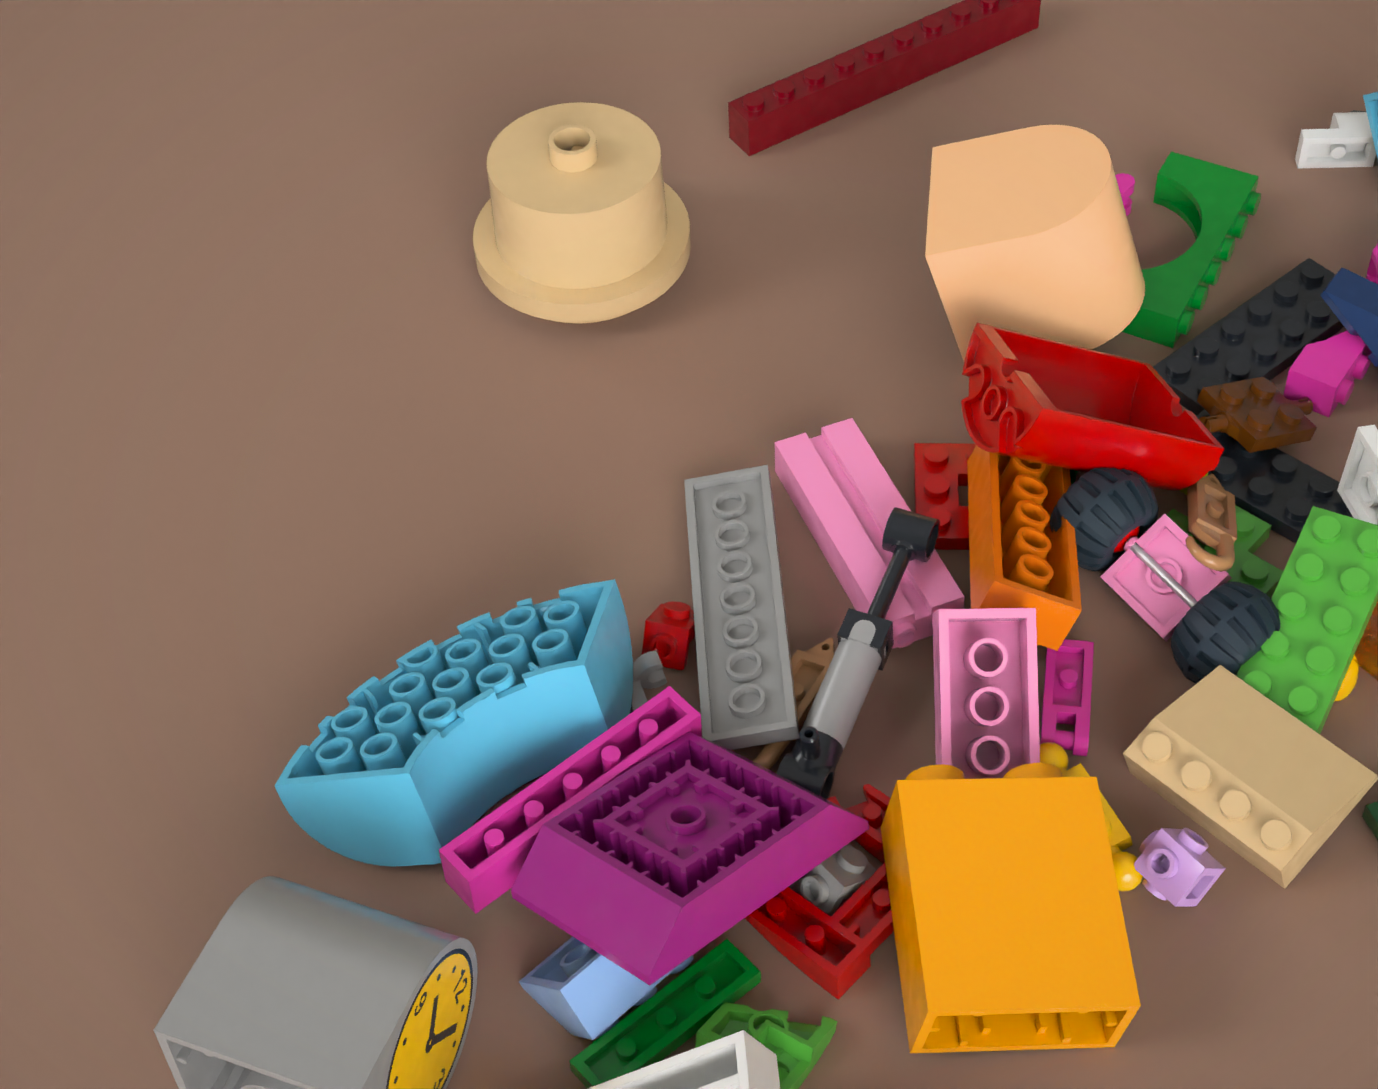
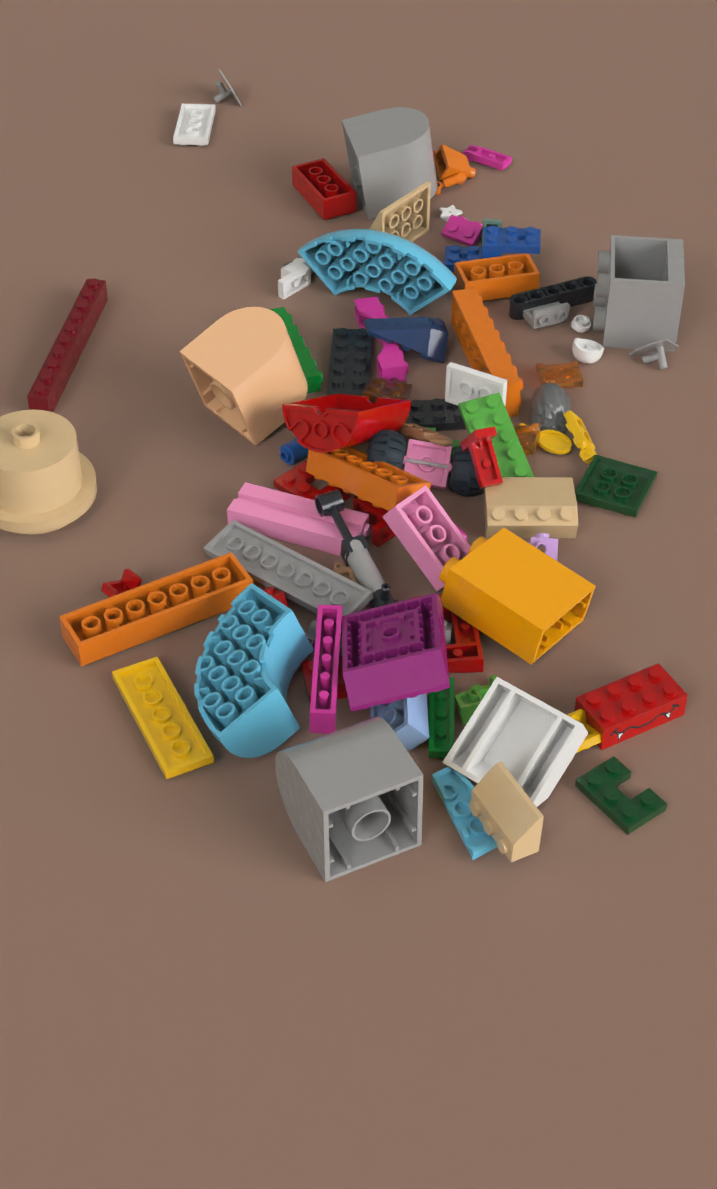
camera: 50 degrees left, 5 degrees down
(345, 647) = (162, 717): none -> yellow plate
(506, 525) = (153, 609): none -> orange brick
(510, 465) = (128, 581): none -> red bracket
(1227, 632) = (483, 456): none -> red bracket

